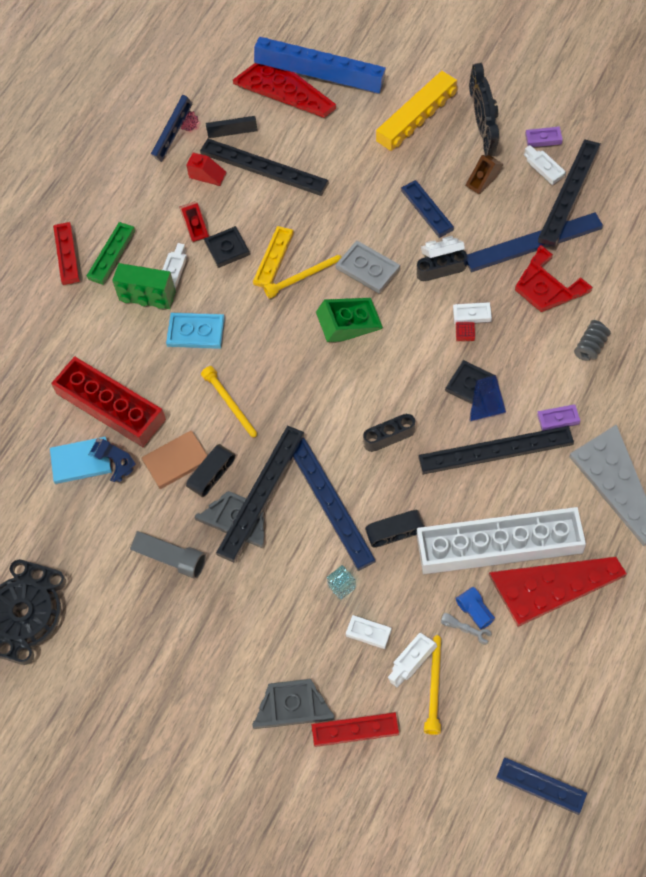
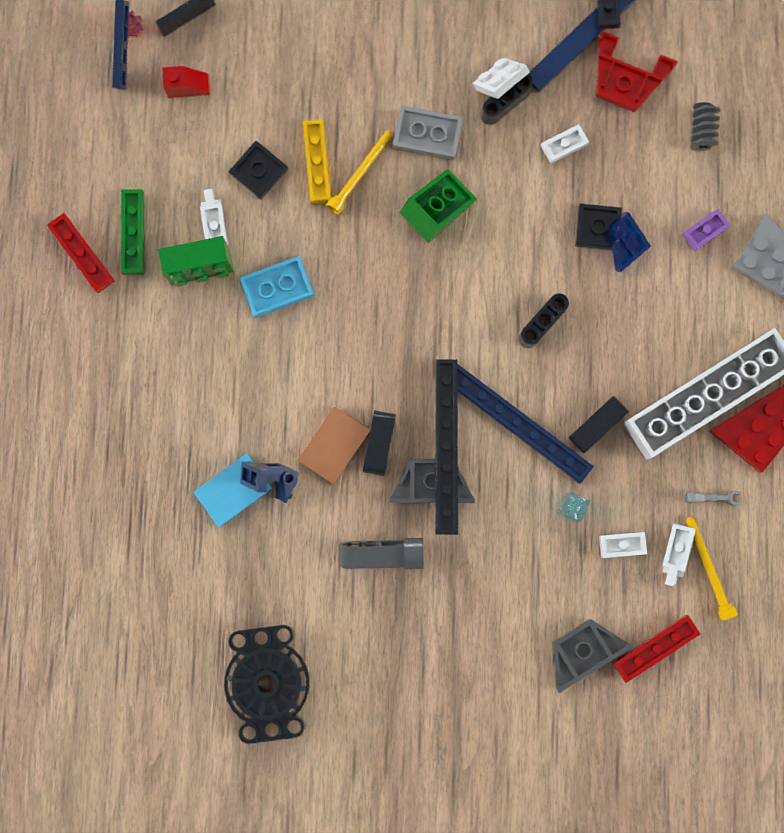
camera: 30 degrees left, 20 degrees up
(108, 401) = (229, 413): red brick -> none
(193, 221) = (205, 153): red slope -> none
(210, 374) = (322, 334): yellow piece -> none
(264, 167) = (247, 50): black tile -> none
(427, 208) = (456, 32): dark blue tile -> none
(465, 331) = (566, 168): tile -> none
(472, 603) = (709, 470): blue piece -> none
(495, 450) = (657, 292): black tile -> none

